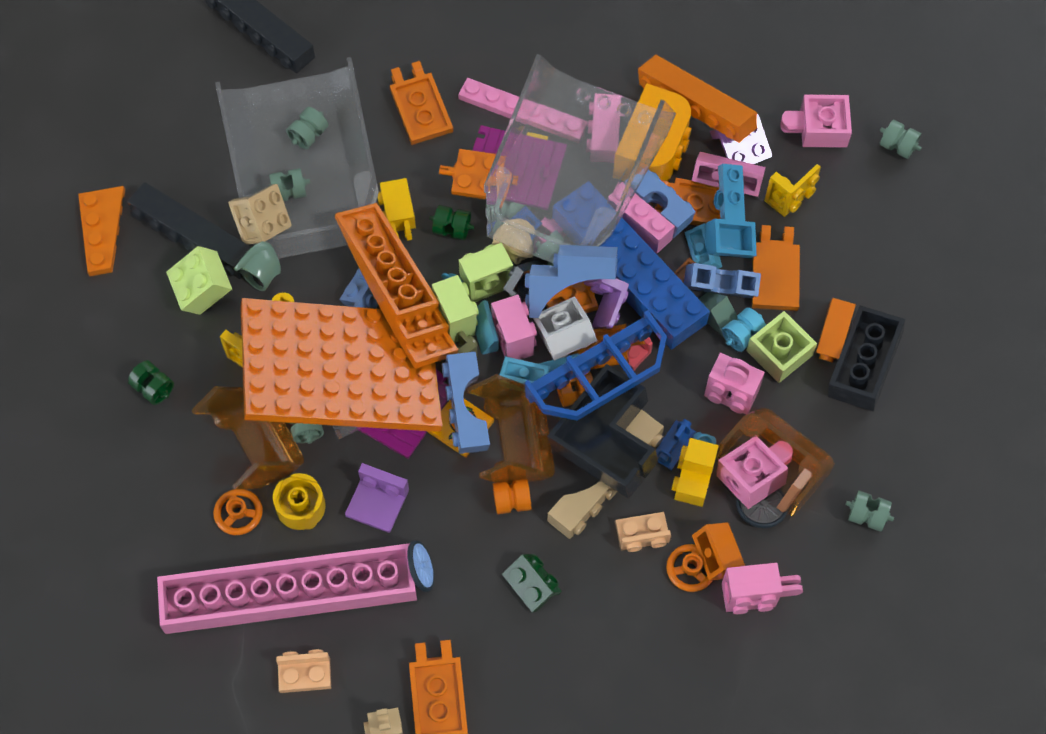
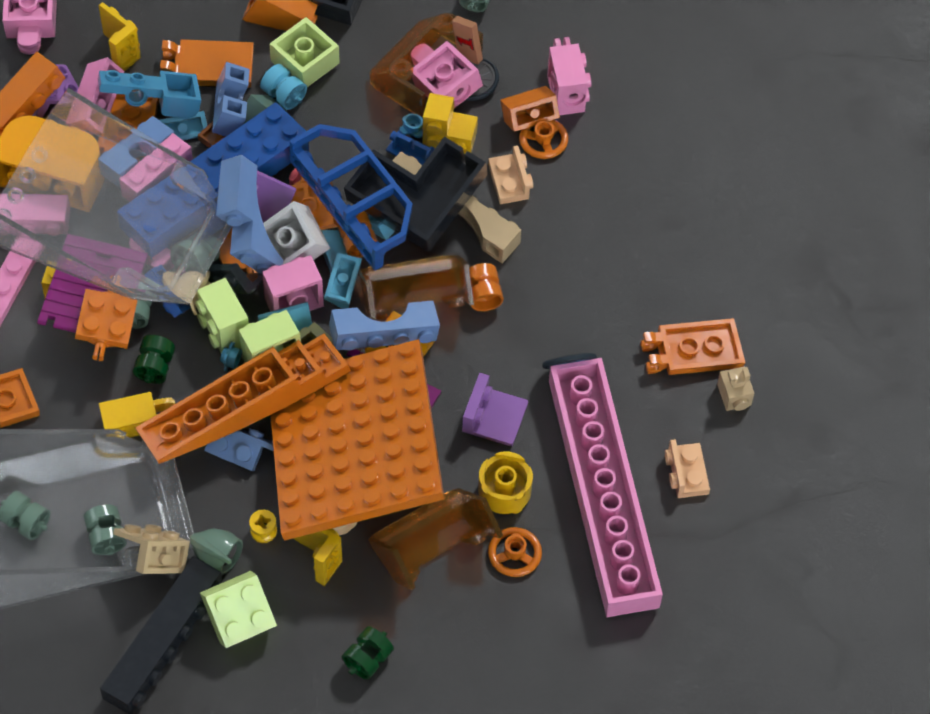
camera: 95 degrees left, 5 degrees down
(531, 581) = (573, 269): bracket -> none
(733, 376) = (351, 91): bright pink brick -> none

